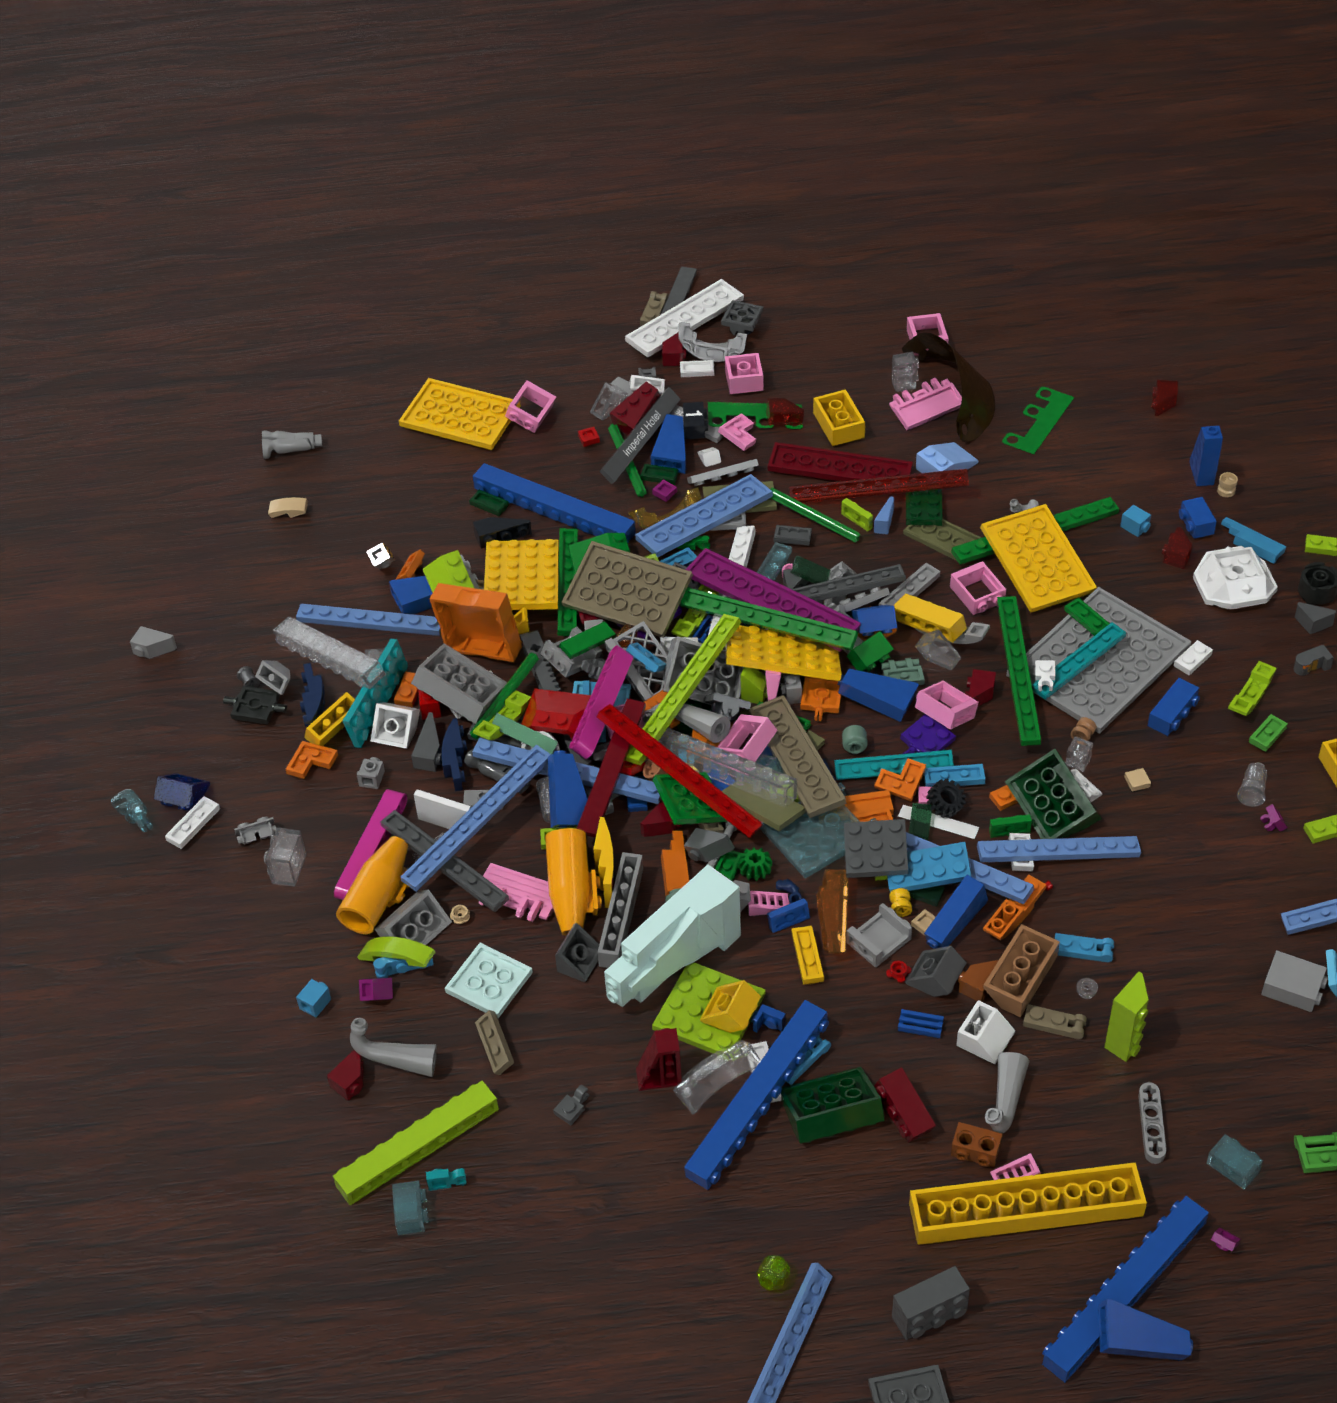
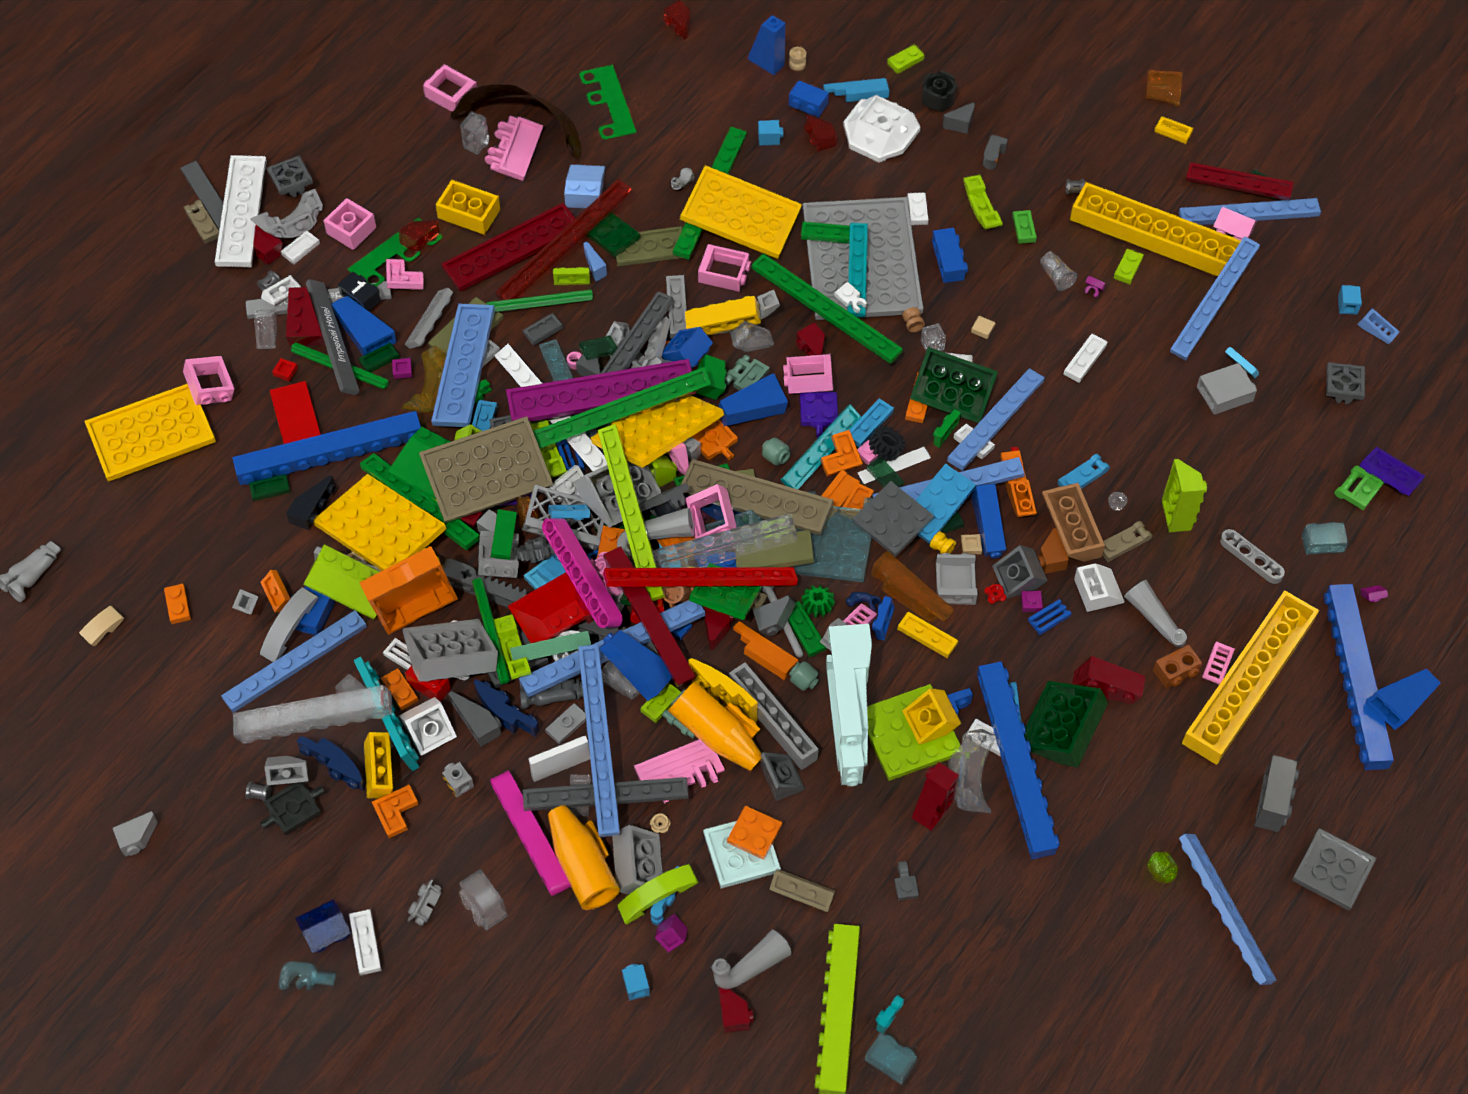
camera: 50 degrees left, 10 degrees up
(346, 529) = (177, 603): none -> orange plate
(389, 585) = (286, 623): none -> light grey slope
(508, 973) = (754, 832): none -> orange plate
(563, 467) = (294, 412): none -> red tile
(710, 456) = (400, 313): white slope -> none
(921, 1000) = (1031, 601): none -> magenta plate
(1196, 864) = (1085, 358): none -> white plate

